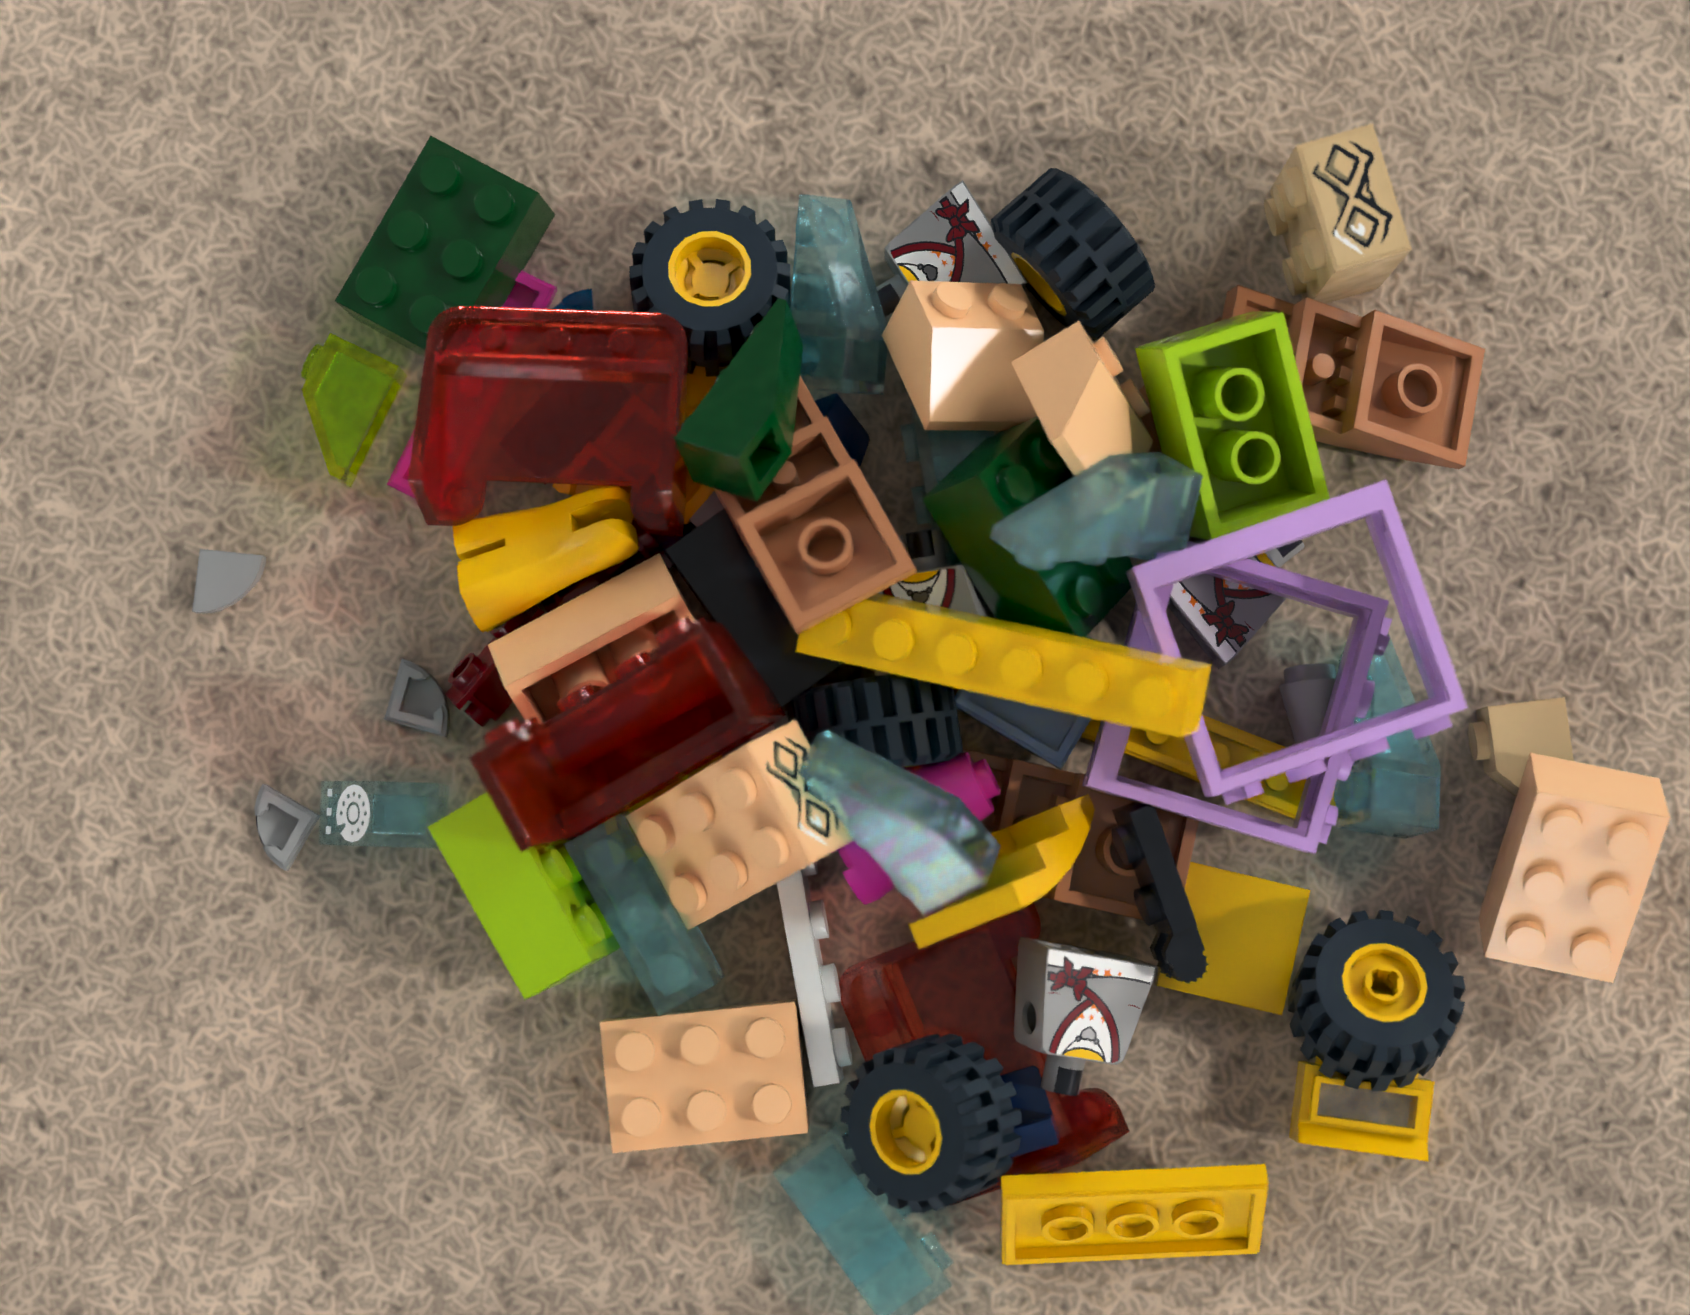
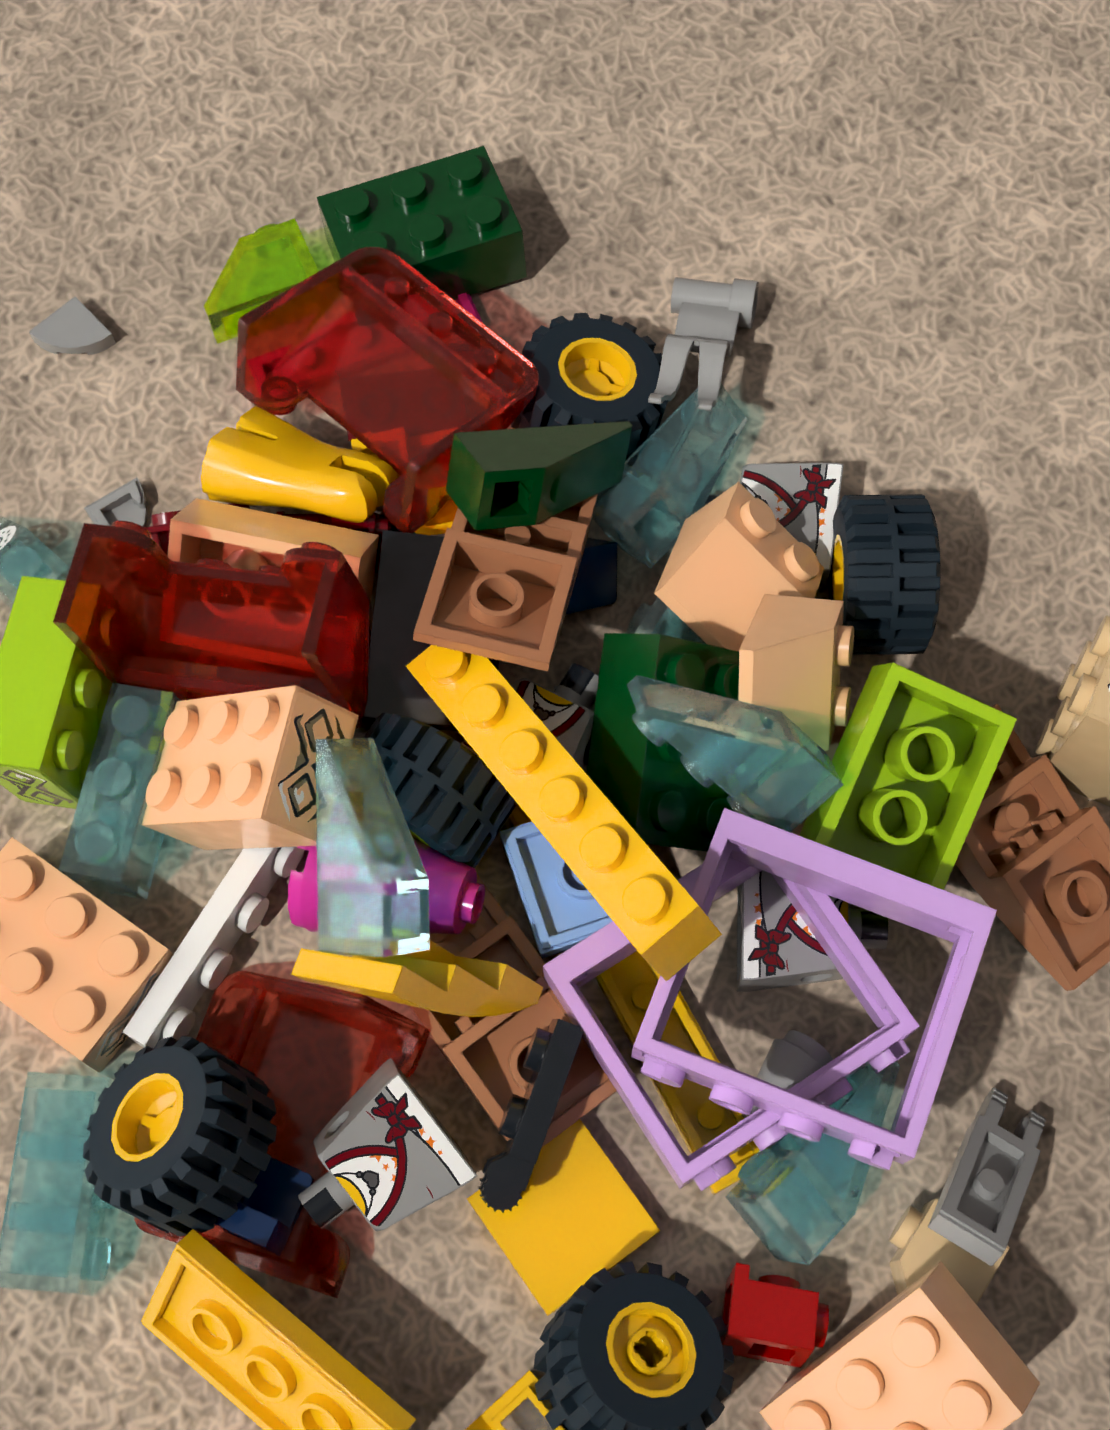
camera: 35 degrees right, 15 degrees down
(756, 154) = (707, 326): none -> light grey flag
(1438, 883) = (772, 1318): none -> red brick
(1513, 660) = (988, 1181): none -> light grey hinge

